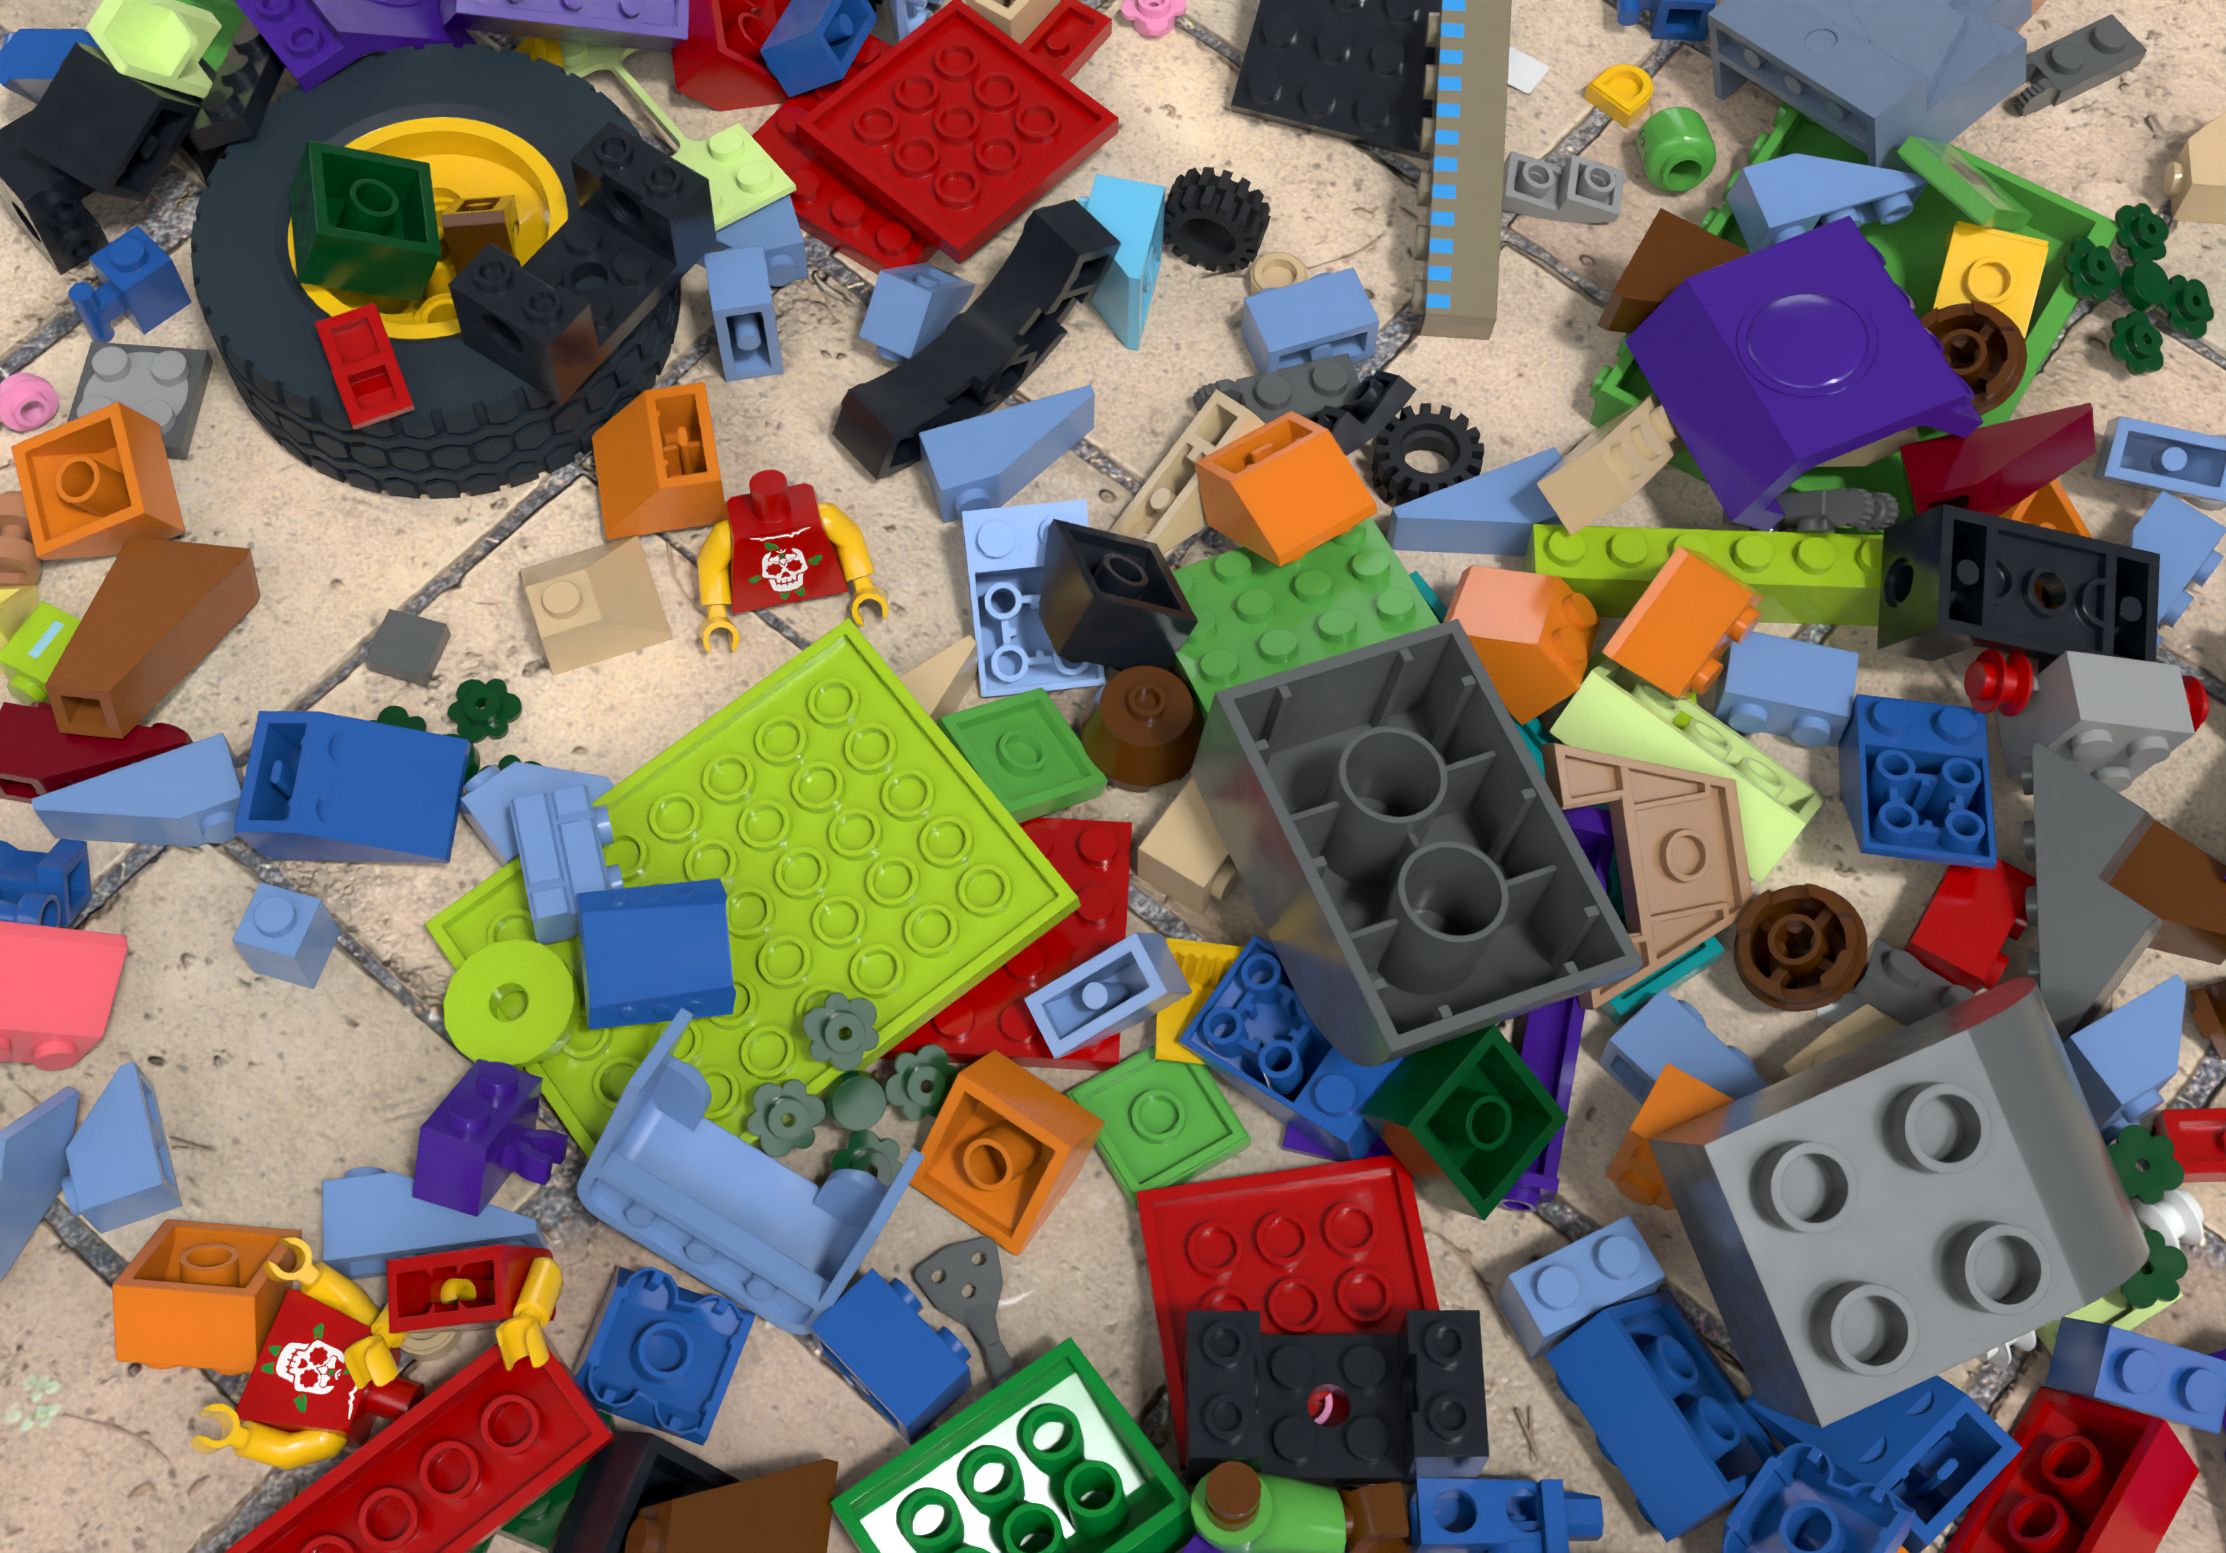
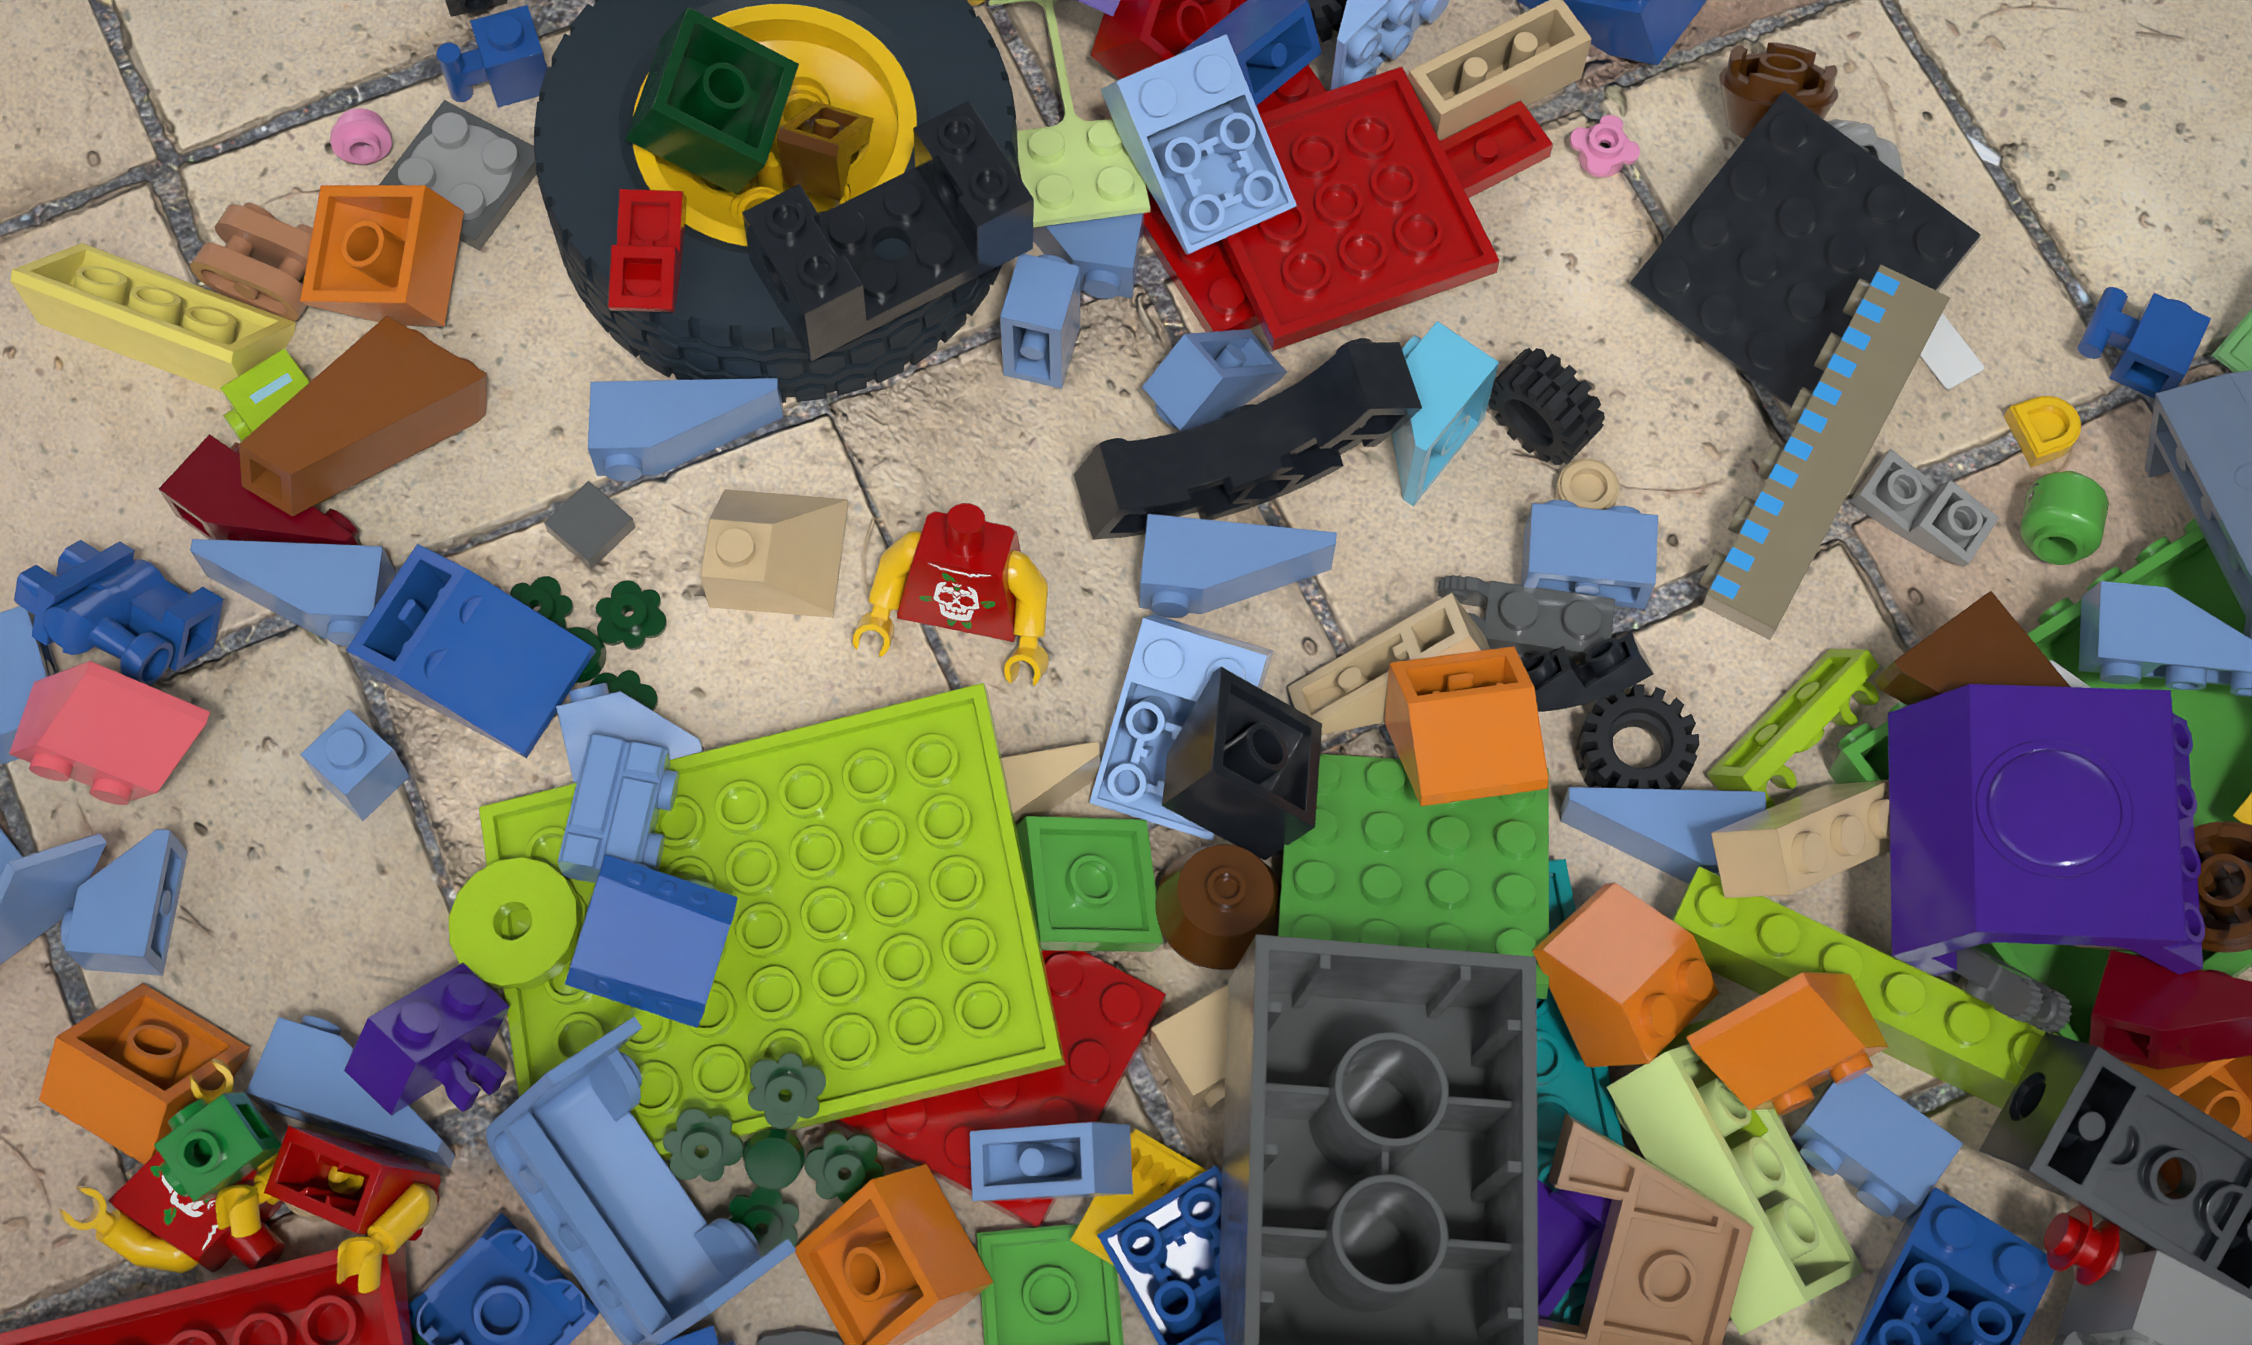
camera: 25 degrees right, 5 degrees up
(320, 1312) = (215, 1145): none -> green brick
(443, 529) = (665, 423): none -> medium blue slope
(659, 464) = (896, 441): orange slope -> none
(814, 111) = (1200, 144): none -> light blue slope
(1549, 386) = (1798, 722): none -> lime plate

